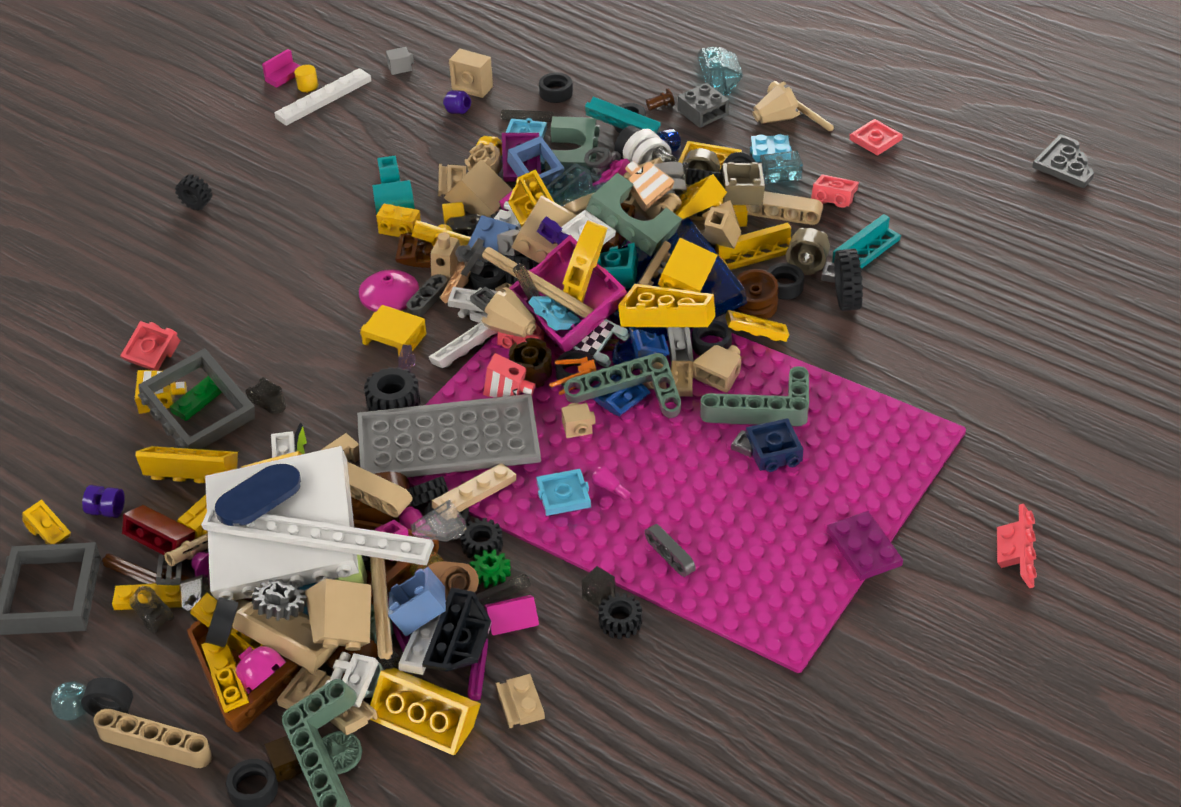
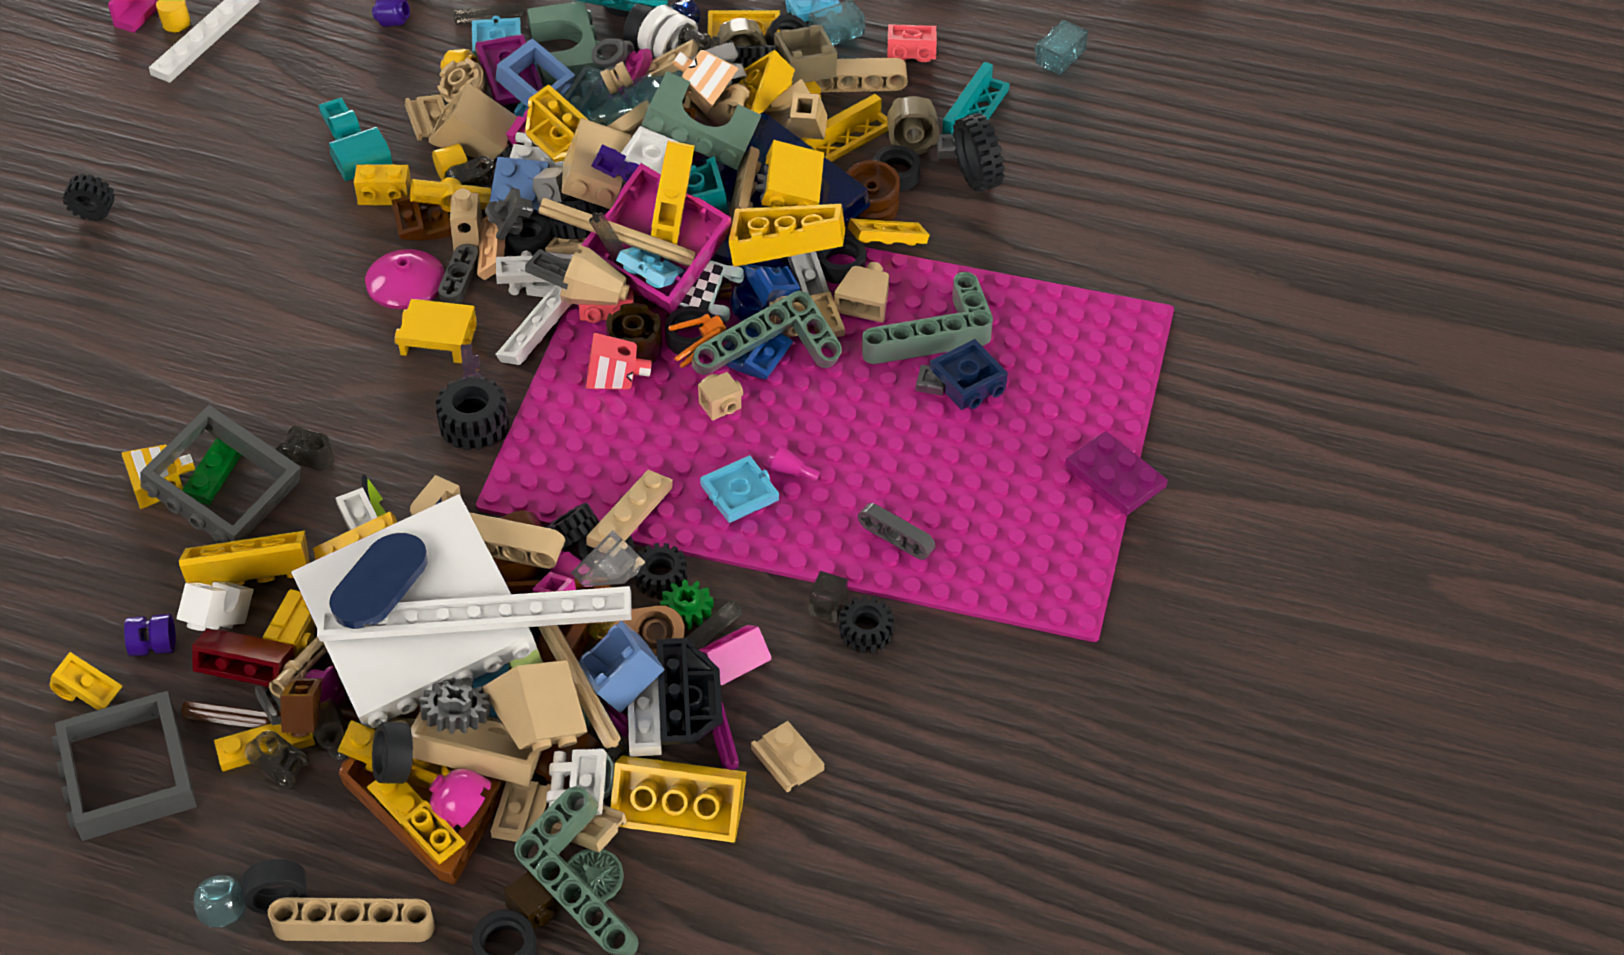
camera: 20 degrees left, 5 degrees up
(142, 488) = (214, 605): none -> white arch
(150, 345) = (120, 416): coral plate -> none
(176, 574) = (301, 706): none -> reddish brown slope
(449, 436) = (568, 451): light grey plate -> none
(593, 175) = (611, 80): none -> tan wheel
(951, 214) = (1061, 46): none -> clear light blue brick
(1016, 545) = (1281, 435): coral bracket -> none

